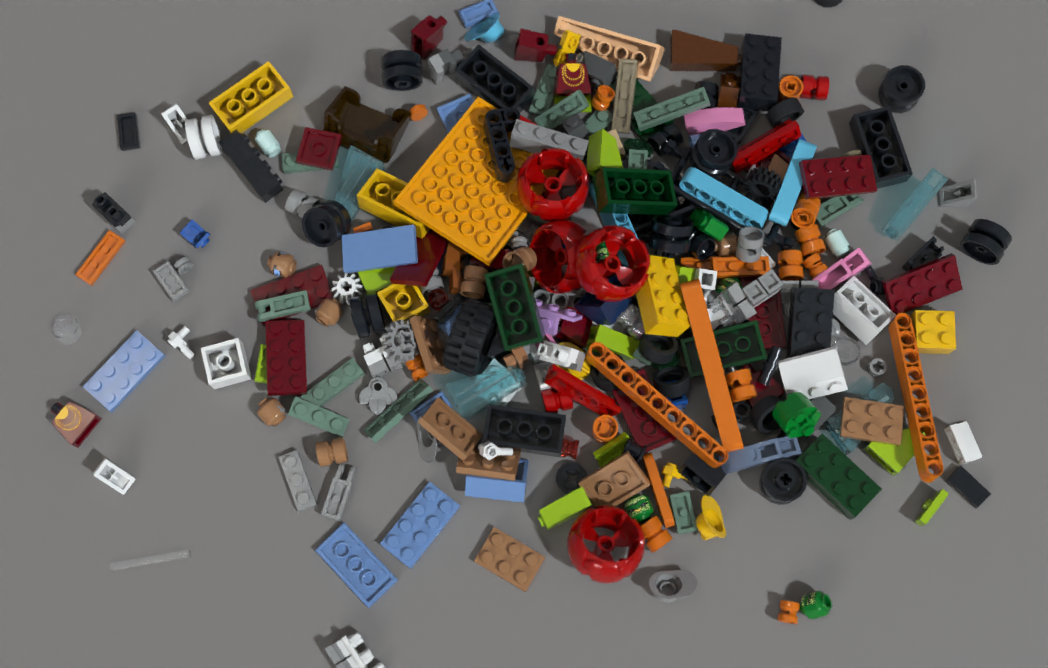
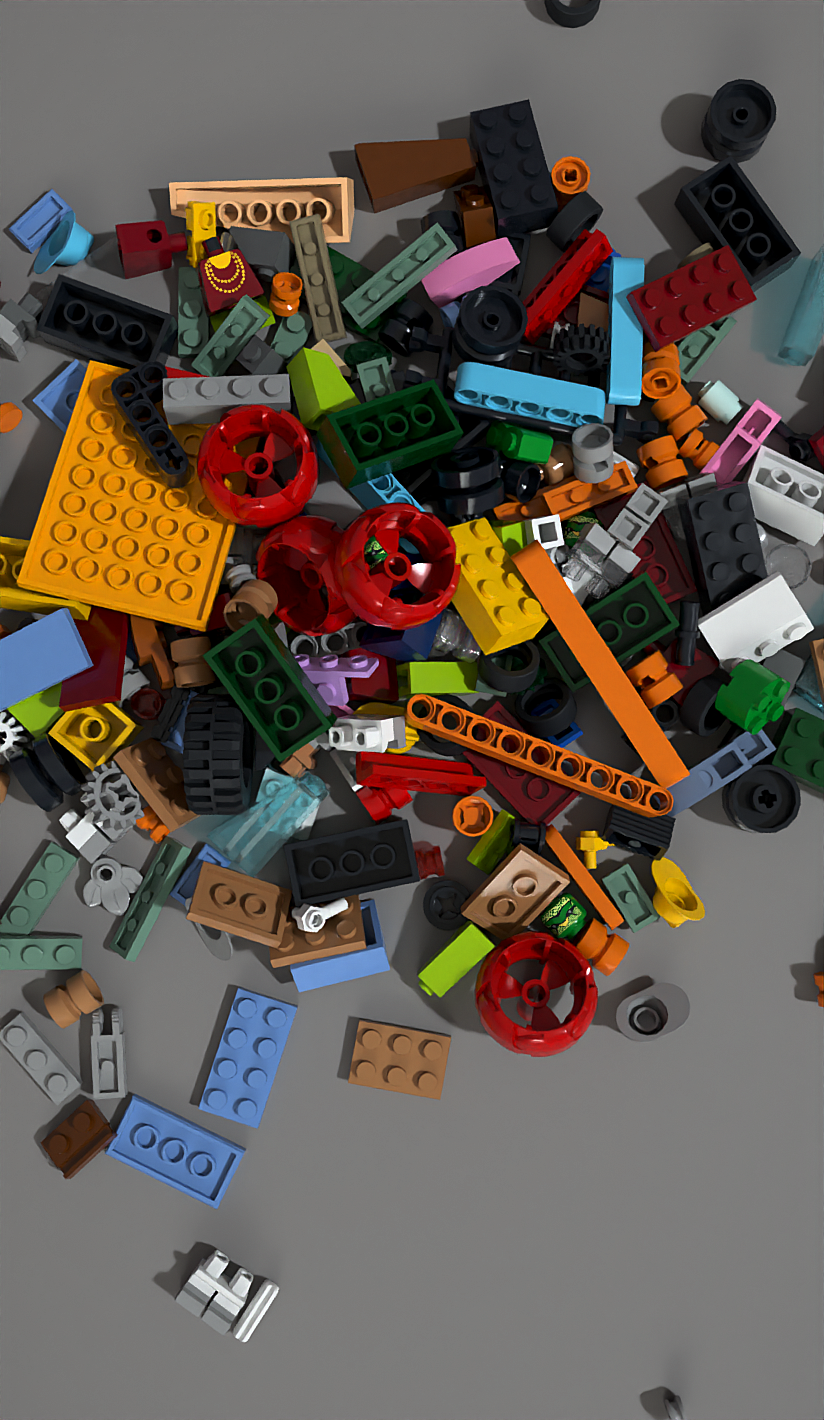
camera: 25 degrees left, 10 degrees up
(303, 535) = (78, 1139): none -> reddish brown plate
(815, 87) = (607, 164): red wheel -> none

